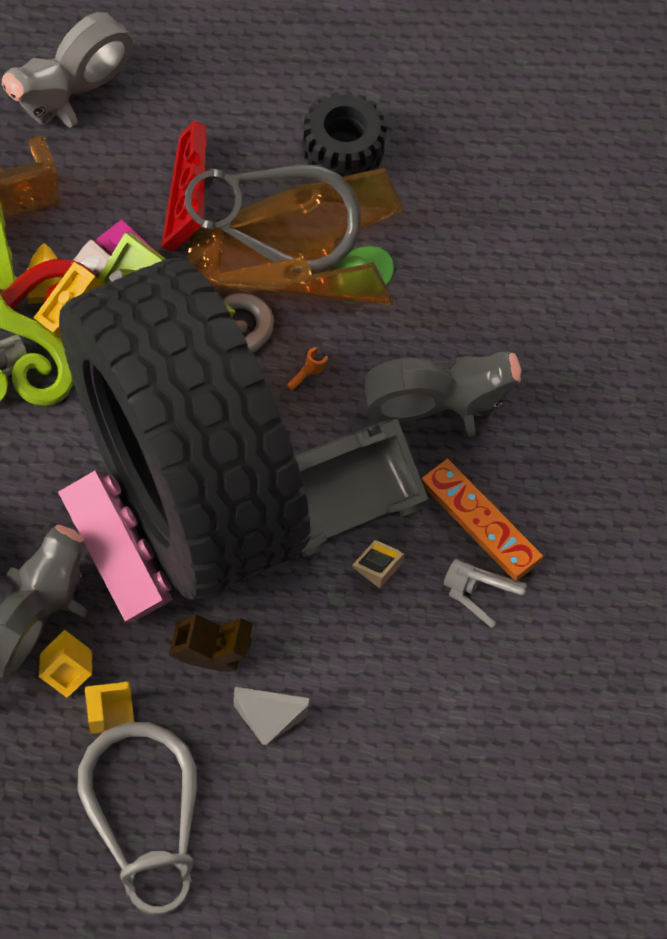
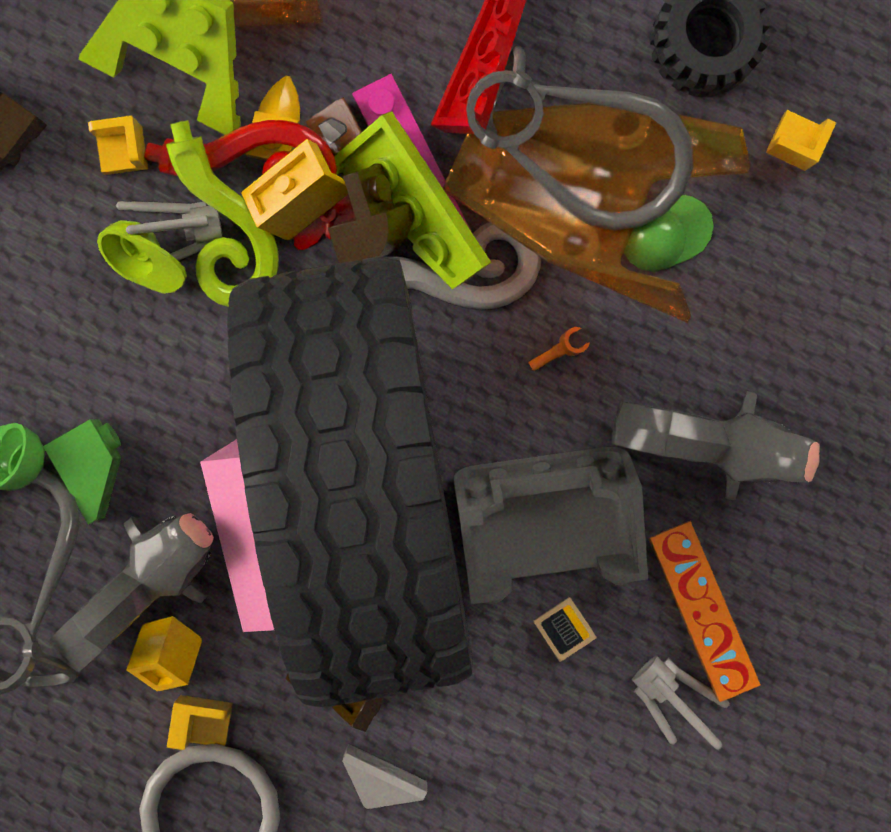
camera: 20 degrees right, 25 degrees up
(433, 189) = (800, 140): none -> yellow panel

